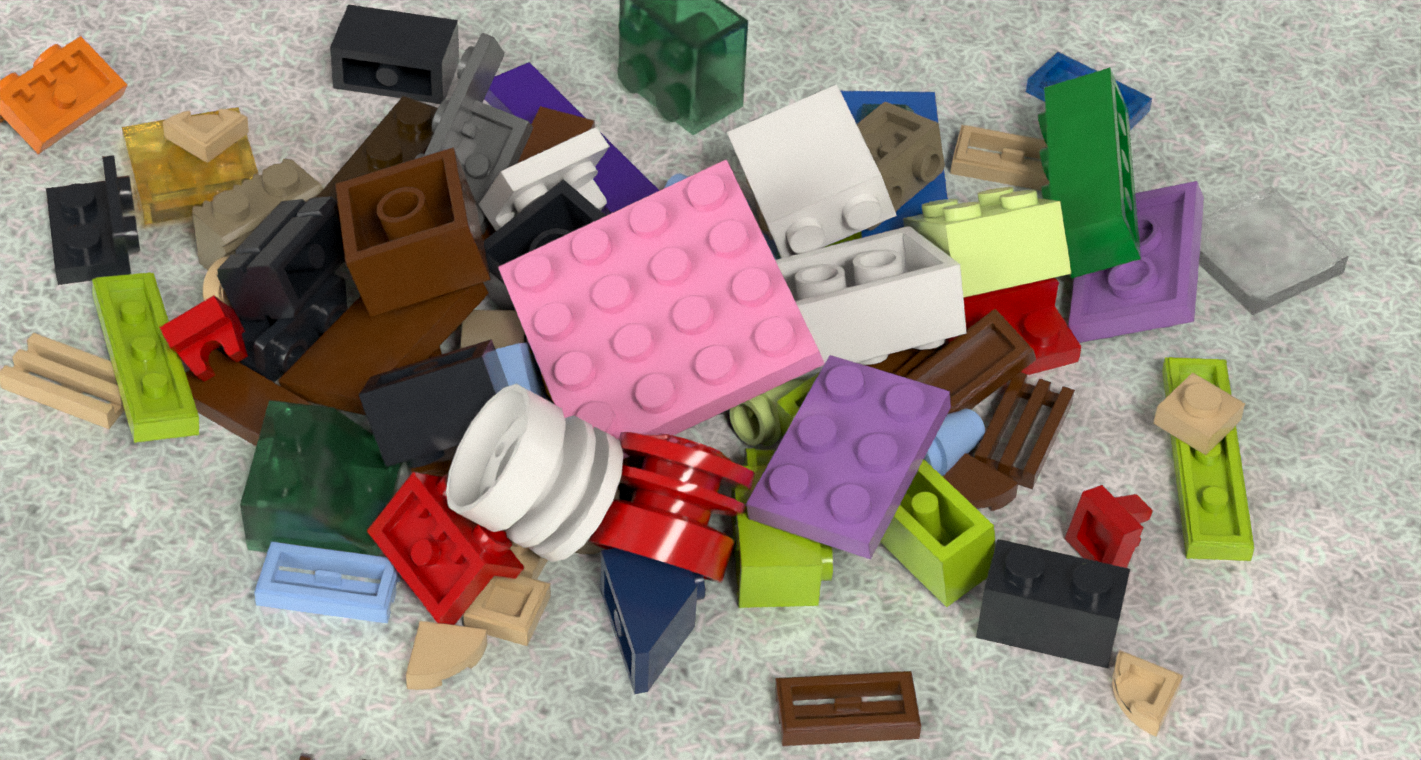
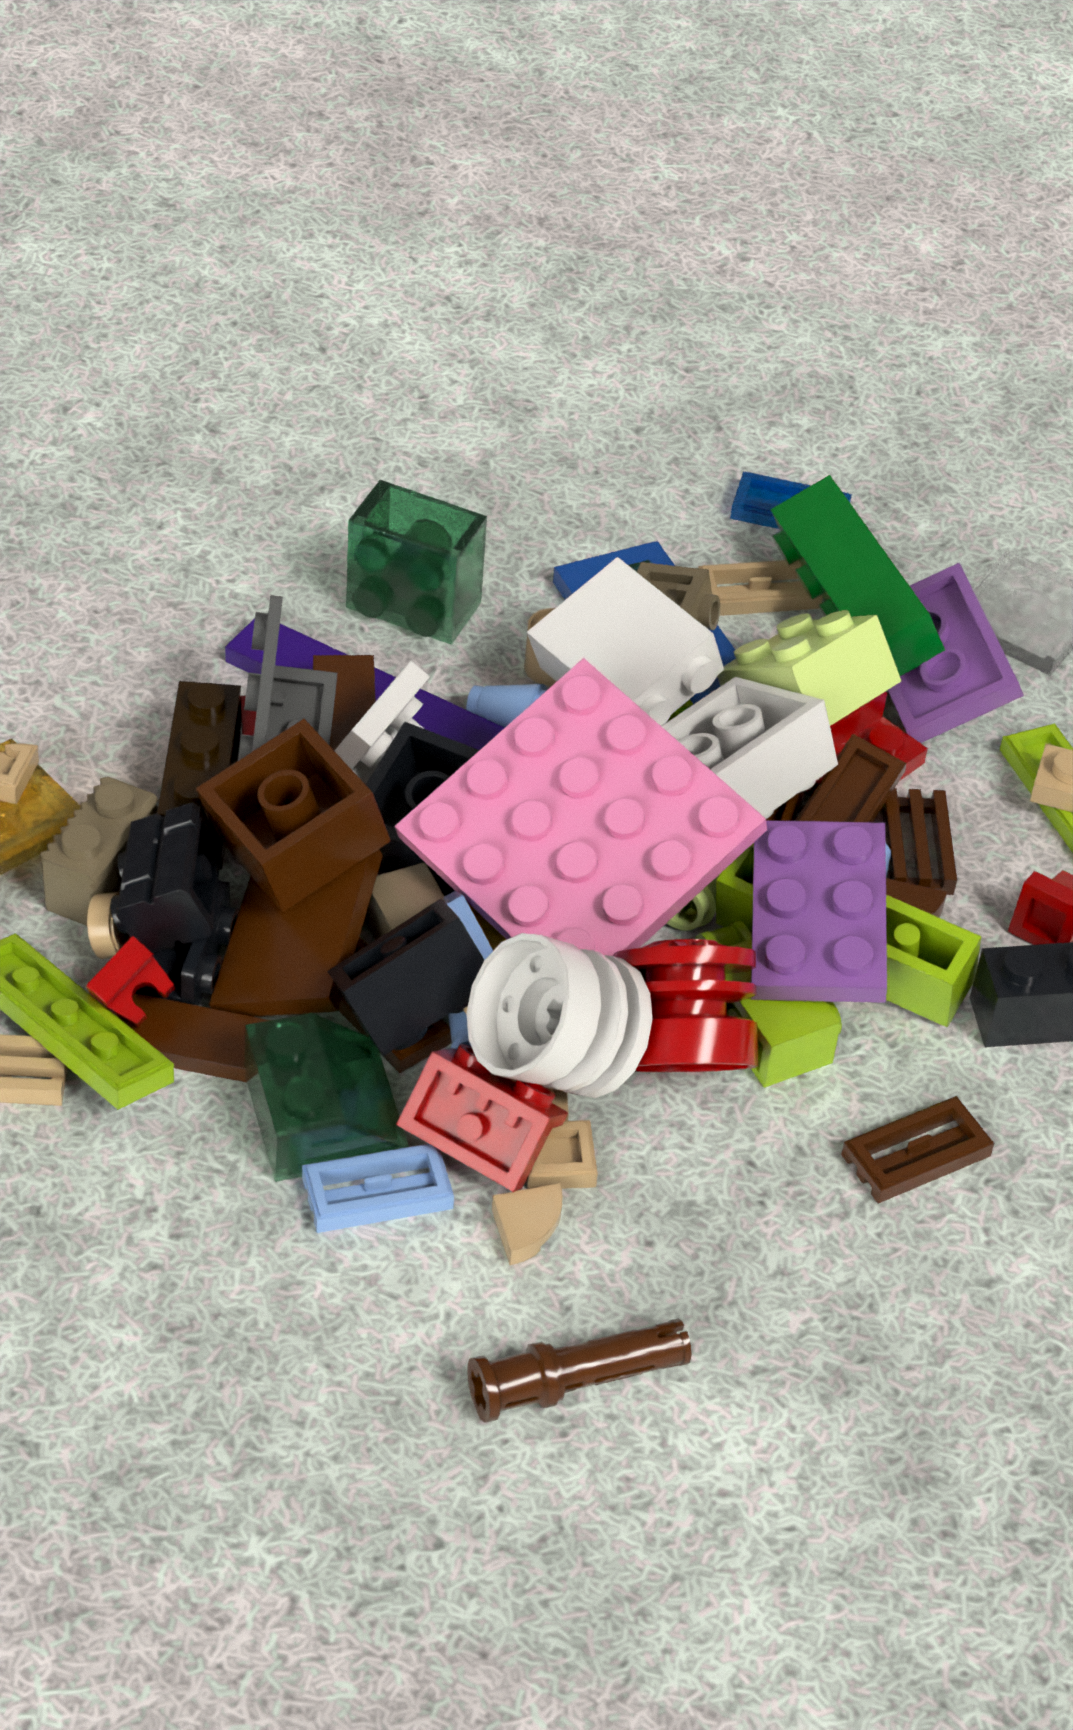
camera: 25 degrees left, 0 degrees up
(395, 54) = (125, 641): black brick -> none
(649, 611) = (694, 1116): dark blue slope -> none

